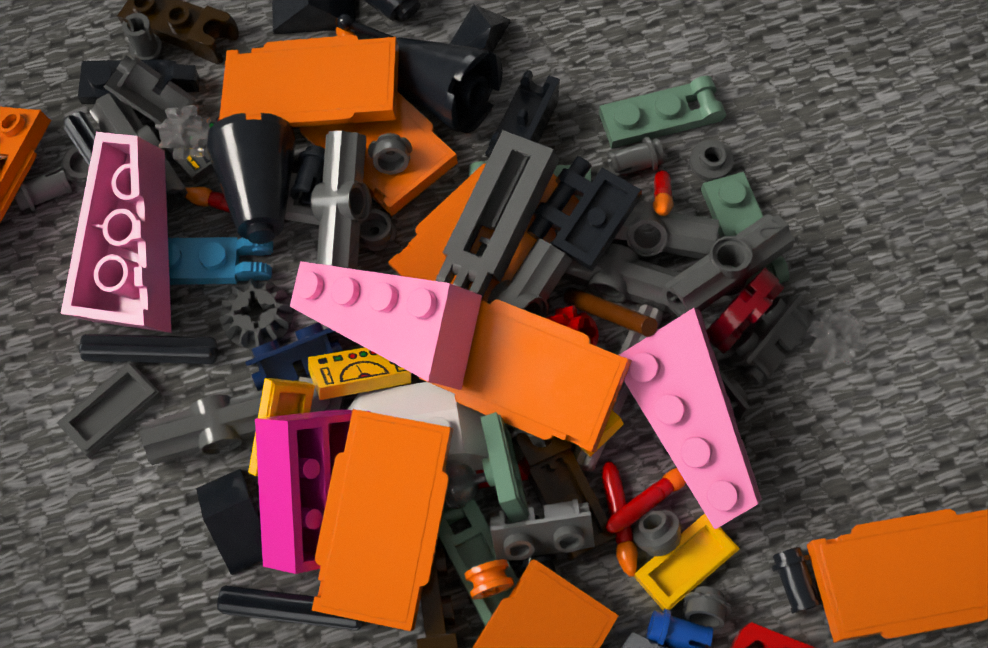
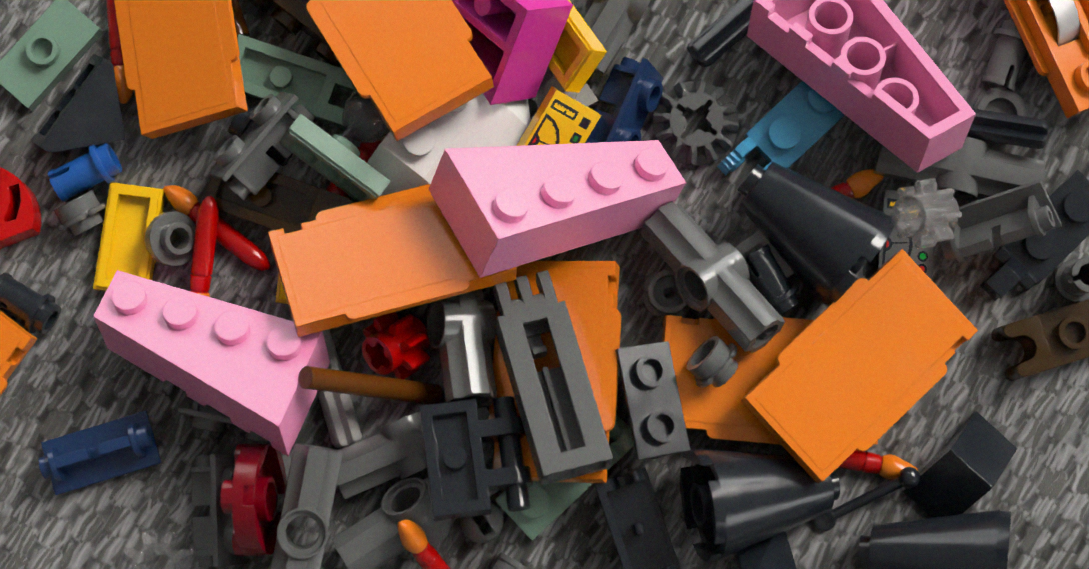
camera: 140 degrees right, 15 degrees up
(446, 165) = (652, 400): none -> hinge
(489, 579) = (267, 64): orange bush -> none
(821, 439) = (99, 453): none -> dark blue hinge

